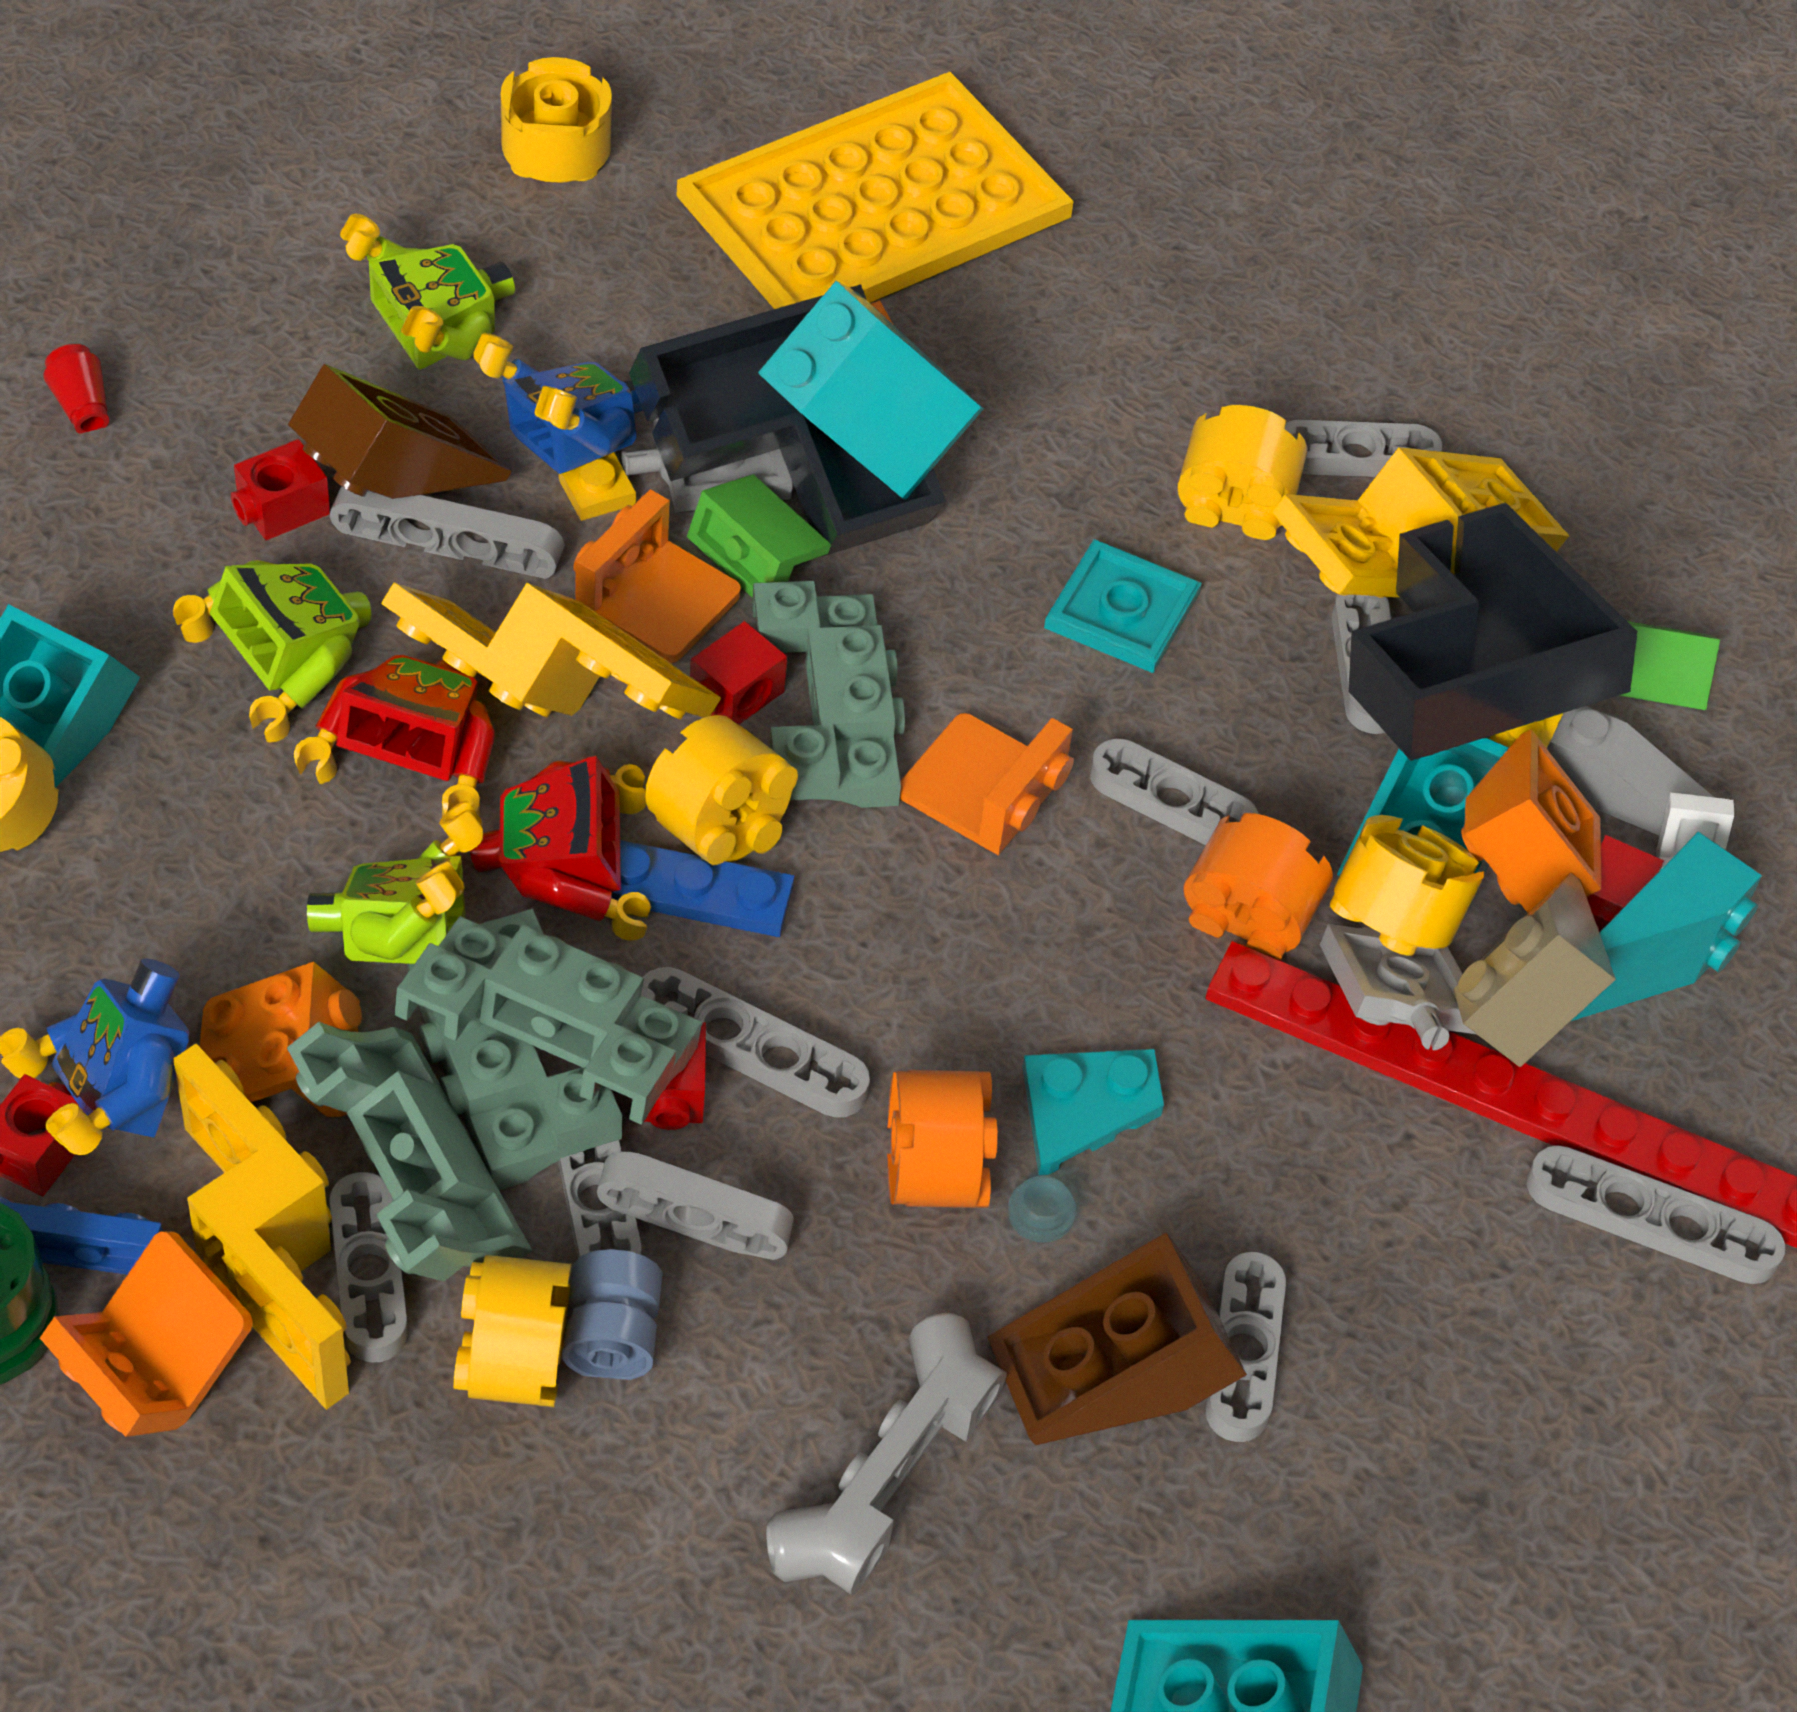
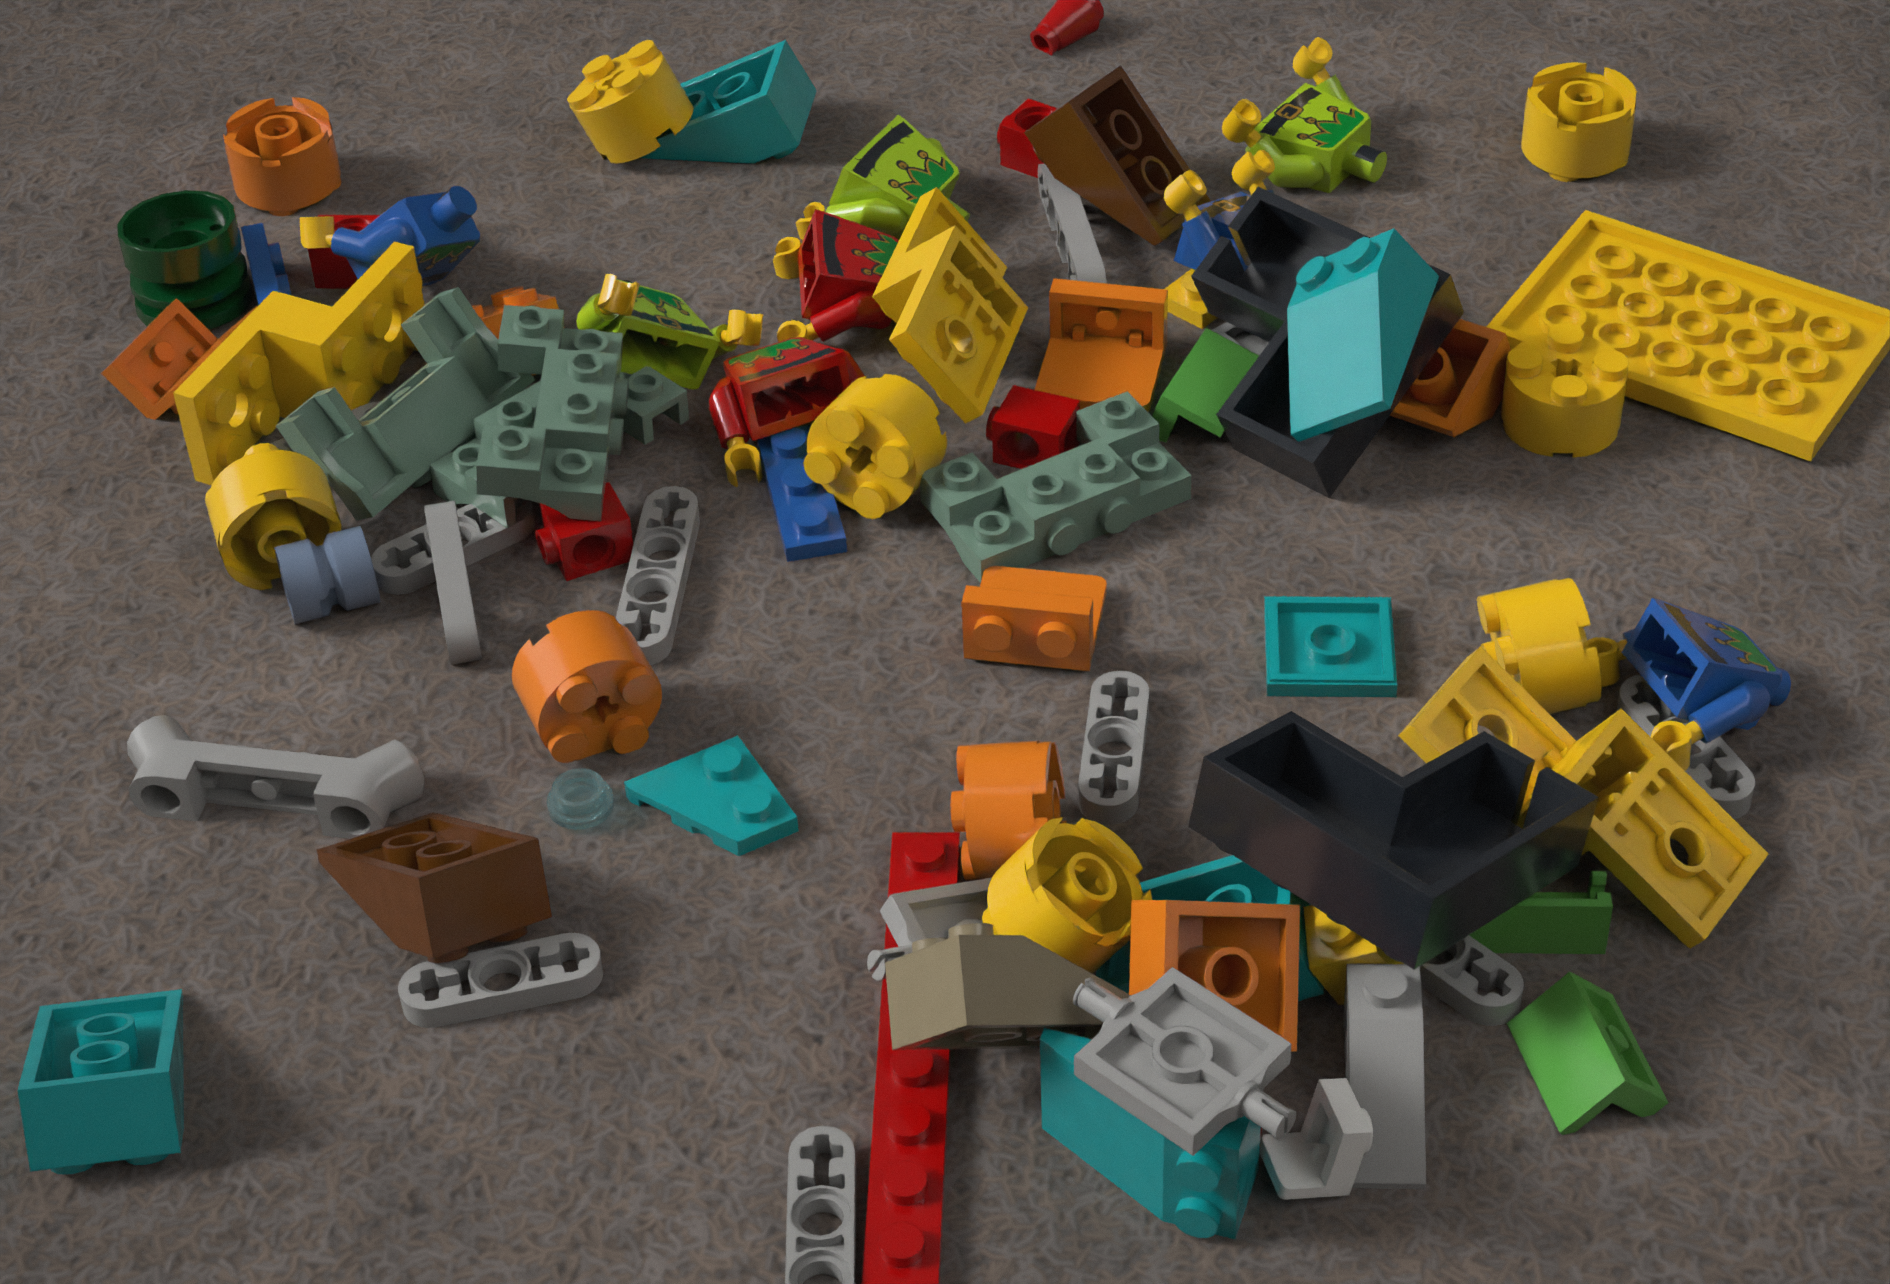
camera: 75 degrees right, 10 degrees down
(929, 300) = (1564, 392): none -> yellow brick
(1326, 393) = (1699, 671): none -> blue torso
(1684, 864) = (1182, 1060): none -> light grey plate

